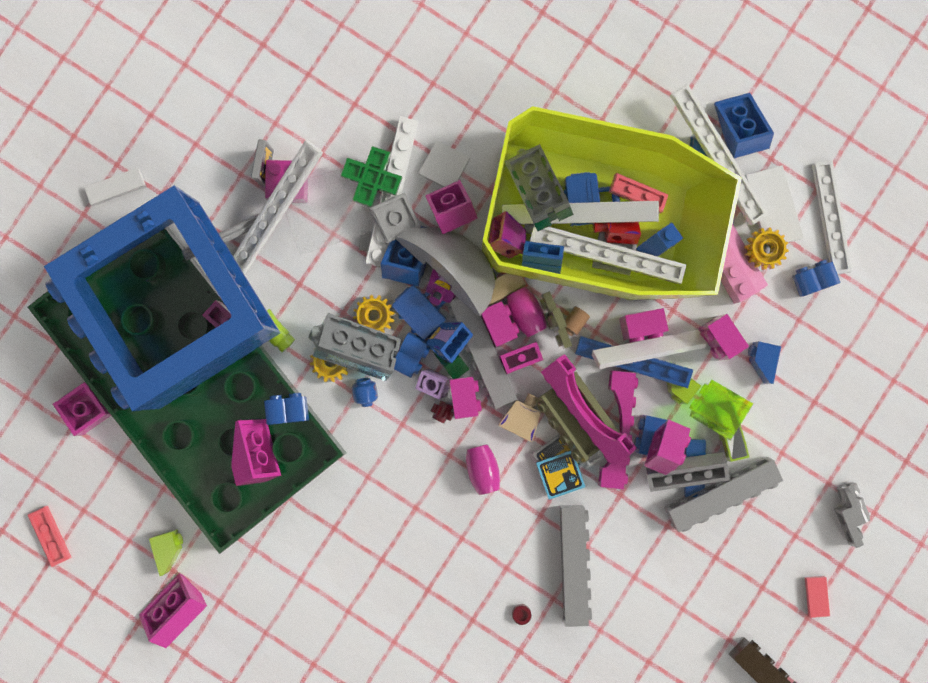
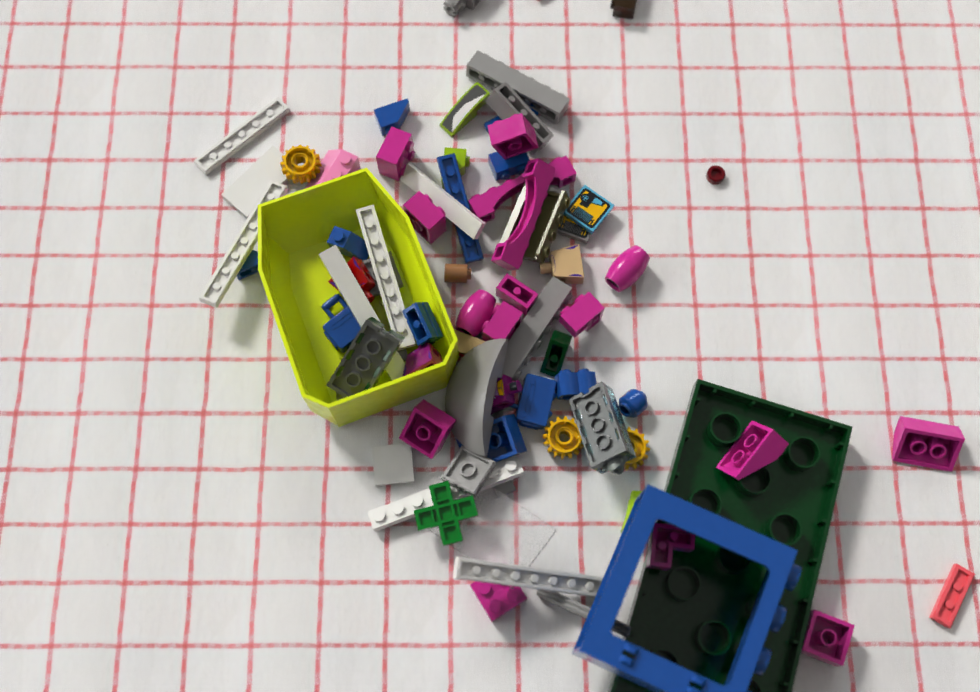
camera: 130 degrees left, 15 degrees down
(166, 550) = (882, 482): lime slope -> none
(263, 153) = (496, 623): light grey tile -> none
(286, 410) = (696, 446): blue brick -> none
(433, 383) = (586, 349): lavender head -> none
(442, 411) = (604, 330): dark red gear -> none
(449, 340) = (543, 356): blue torso -> none
(555, 320) = (468, 282): olive plate -> none
(574, 565) = (649, 158): light grey brick -> none
(635, 191) = (317, 285): coral tile -> none
(720, 409) = (454, 123): clear neon green brick -> none
(743, 125) = (204, 242): blue slope -> none
(816, 279) = (301, 117): blue brick -> none

